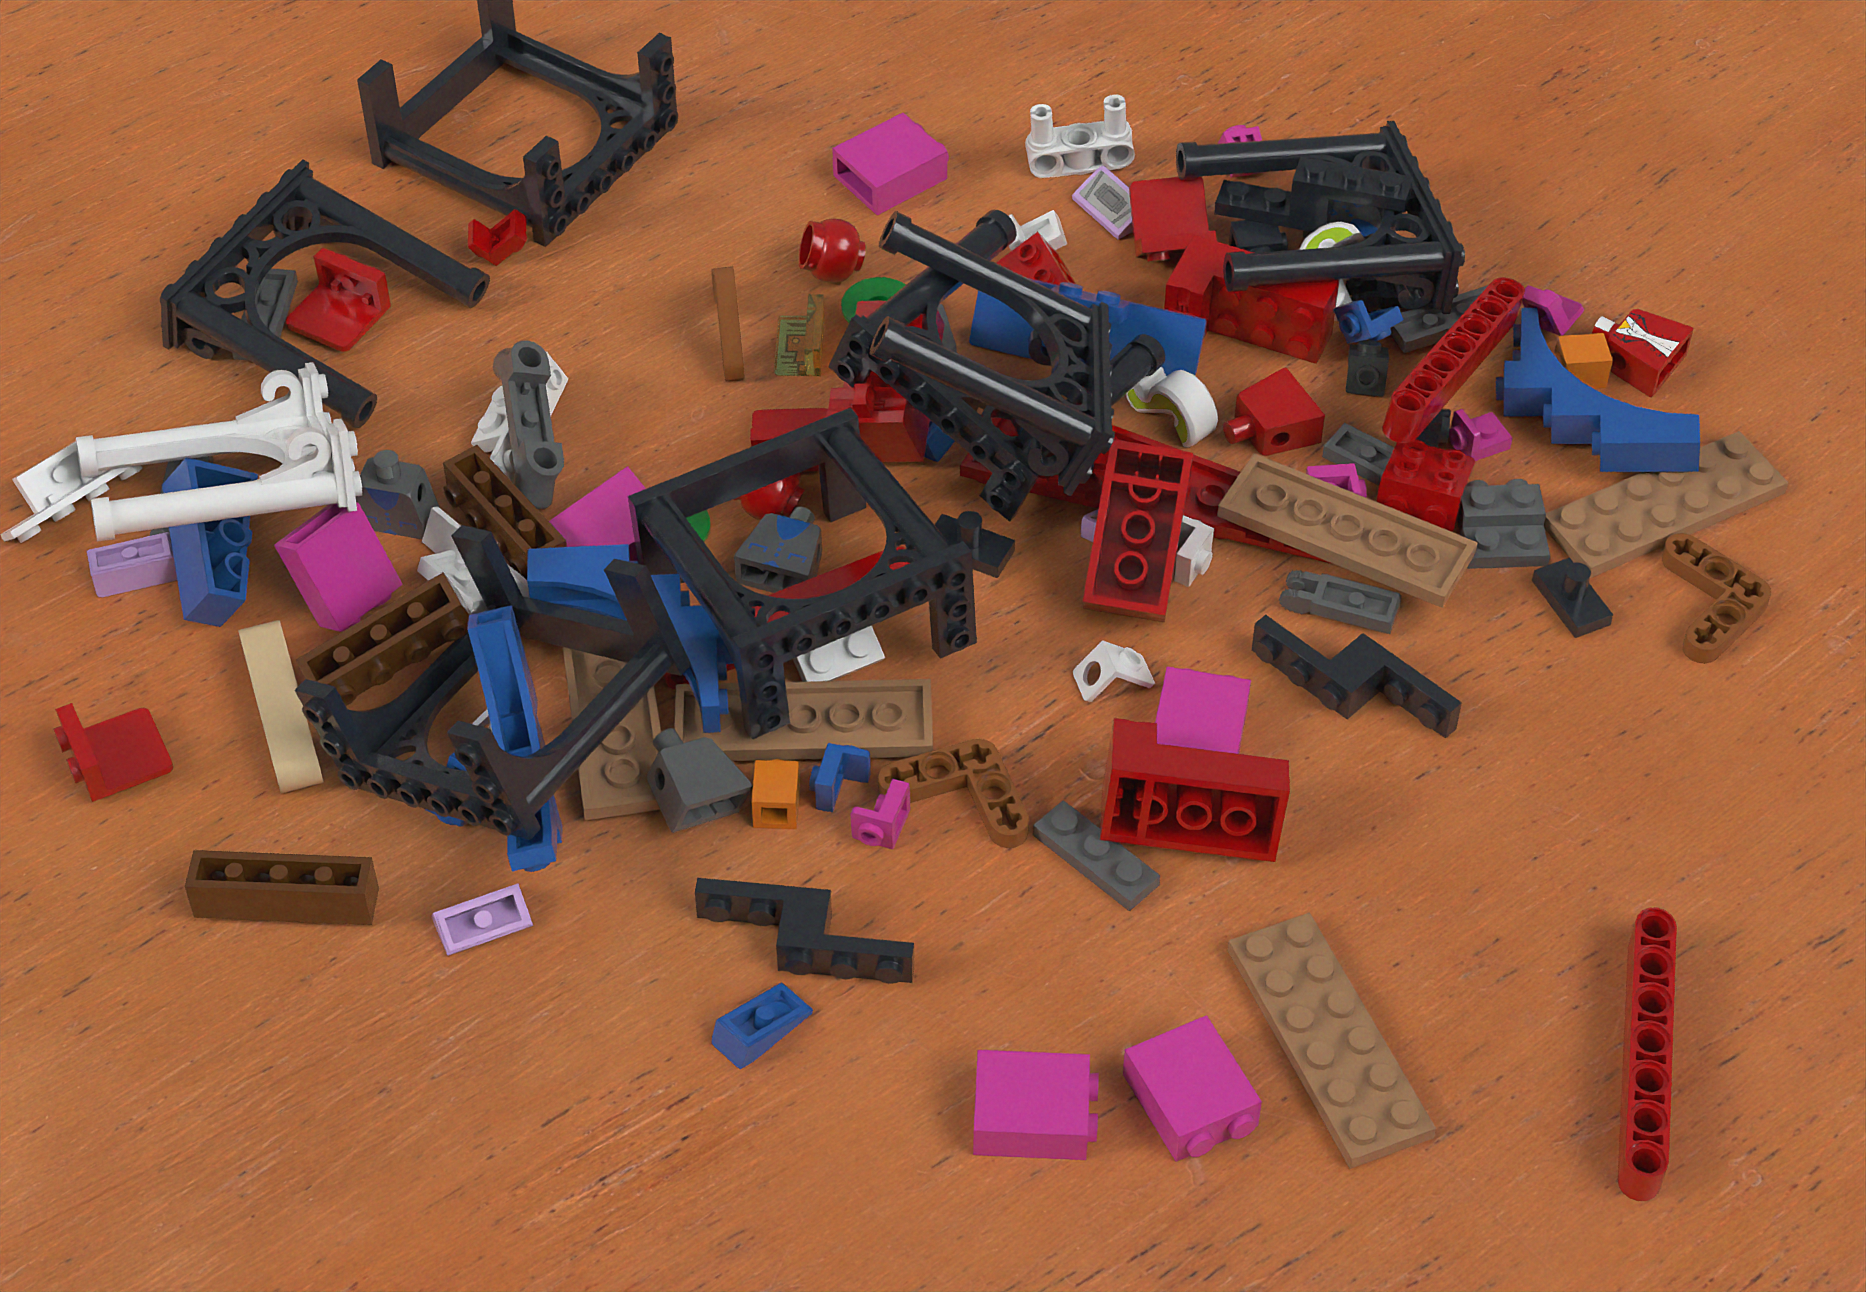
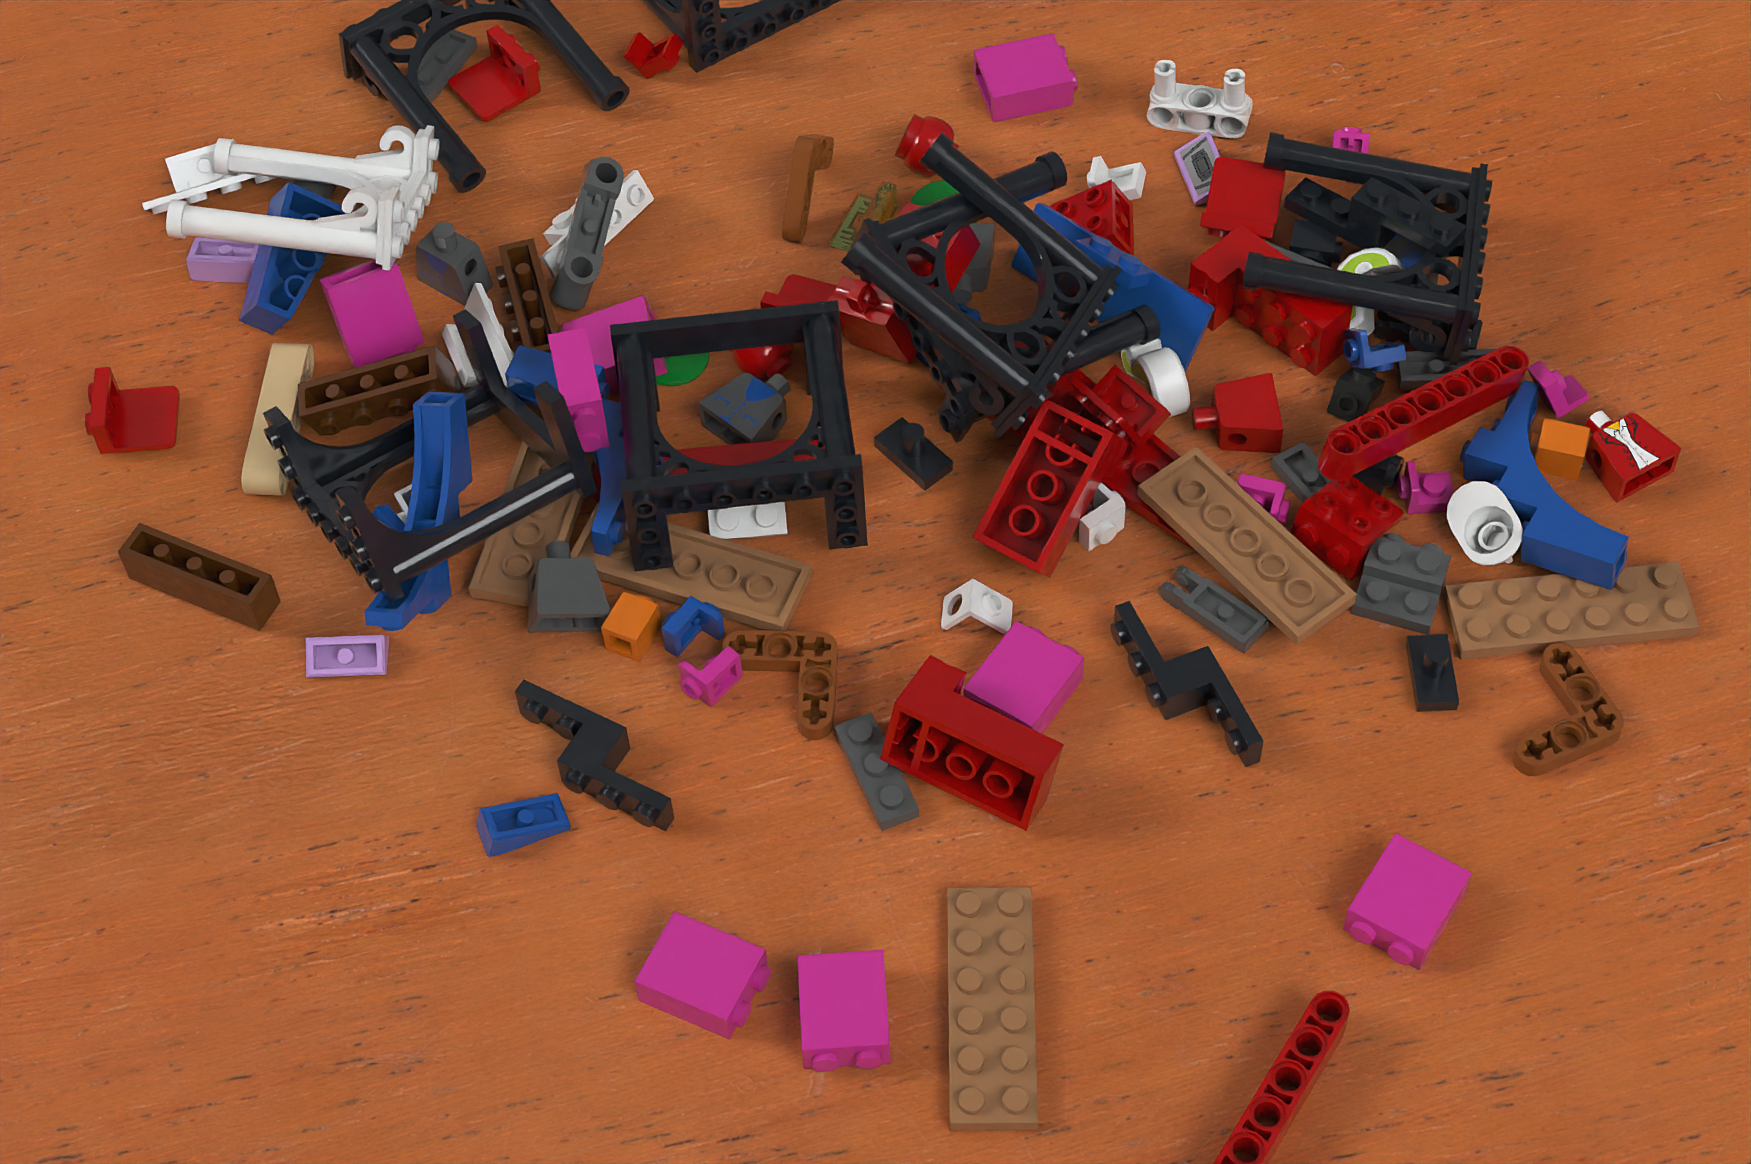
camera: 25 degrees right, 5 degrees up
(616, 535) = (579, 386): none -> dark pink brick
(1164, 429) = (1121, 406): none -> red bracket
(1555, 445) = (1484, 523): none -> white piece
(1666, 808) = (1406, 901): none -> dark pink brick

